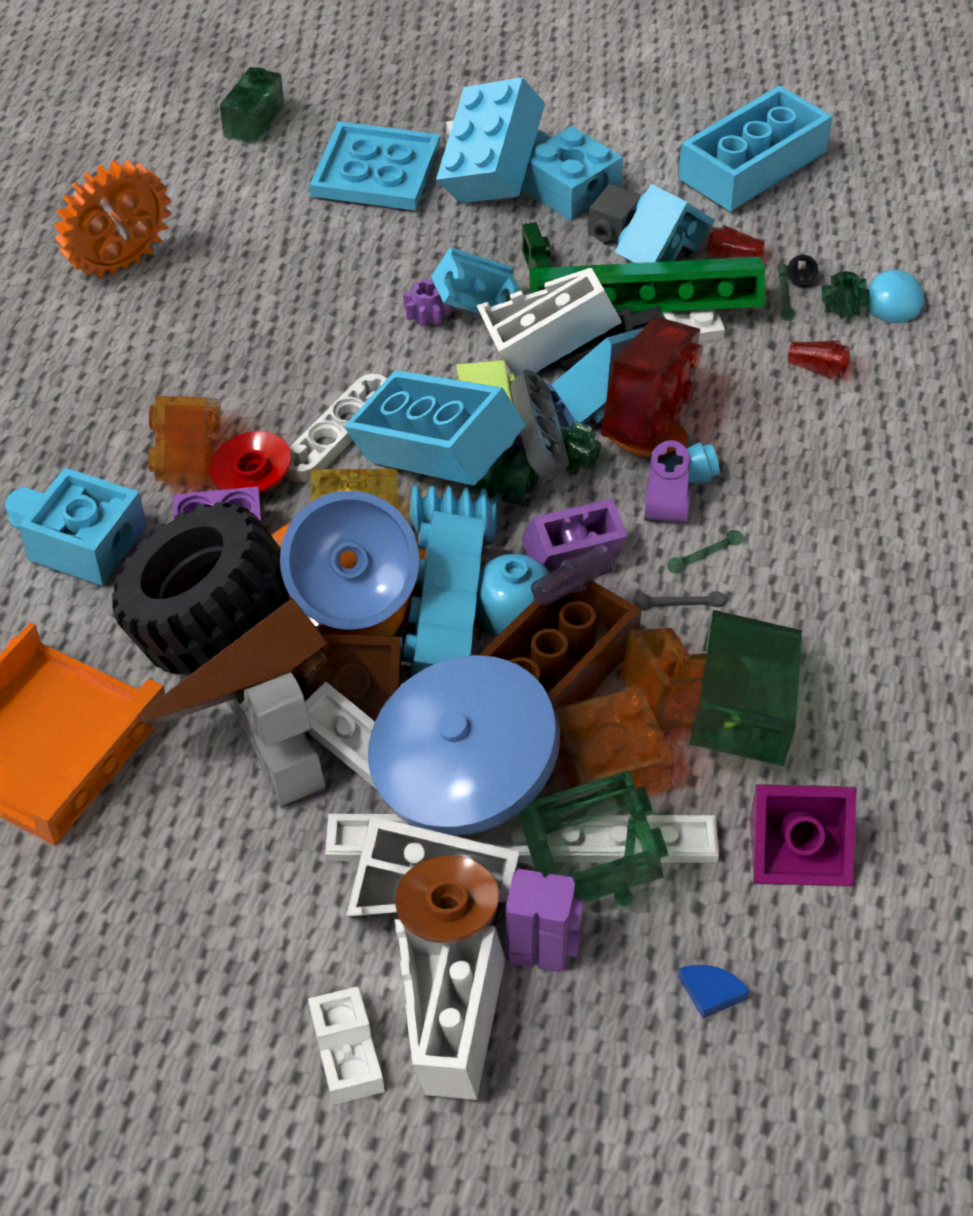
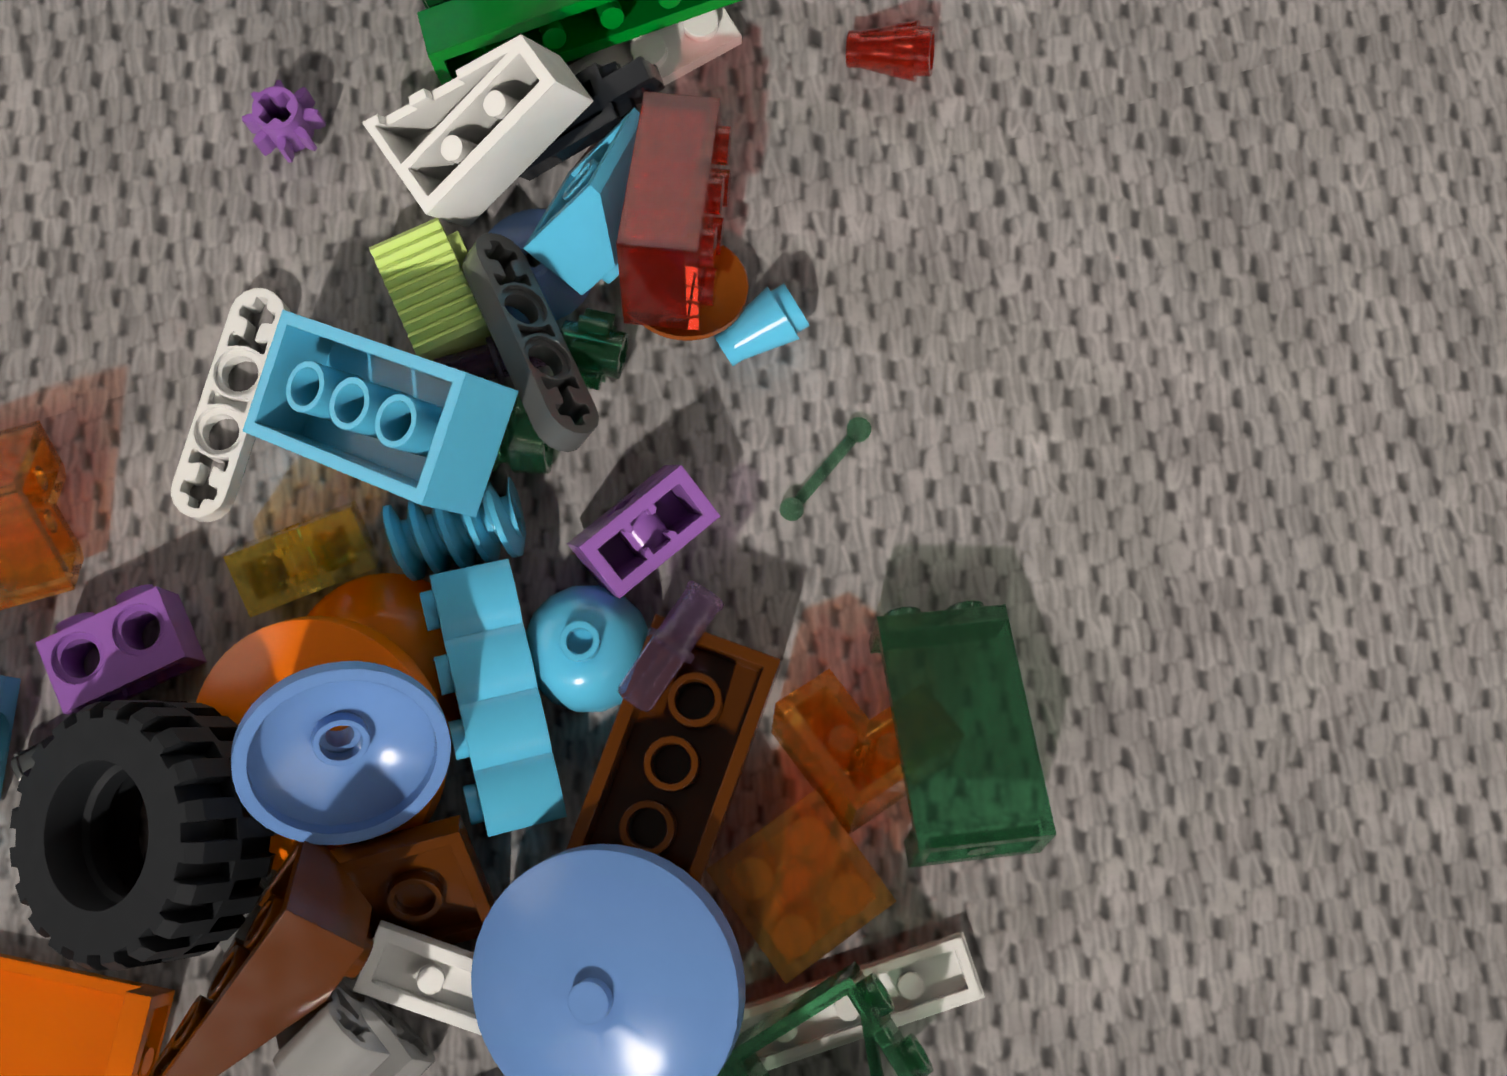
camera: 15 degrees left, 30 degrees up
(251, 461) = (104, 524): red dish -> none
(471, 280) = (345, 72): medium azure hinge -> none
(644, 601) = (862, 551): dark grey hinge -> none
(668, 491) = (746, 380): medium lavender piece -> none
(803, 834) = (1089, 942): magenta slope -> none

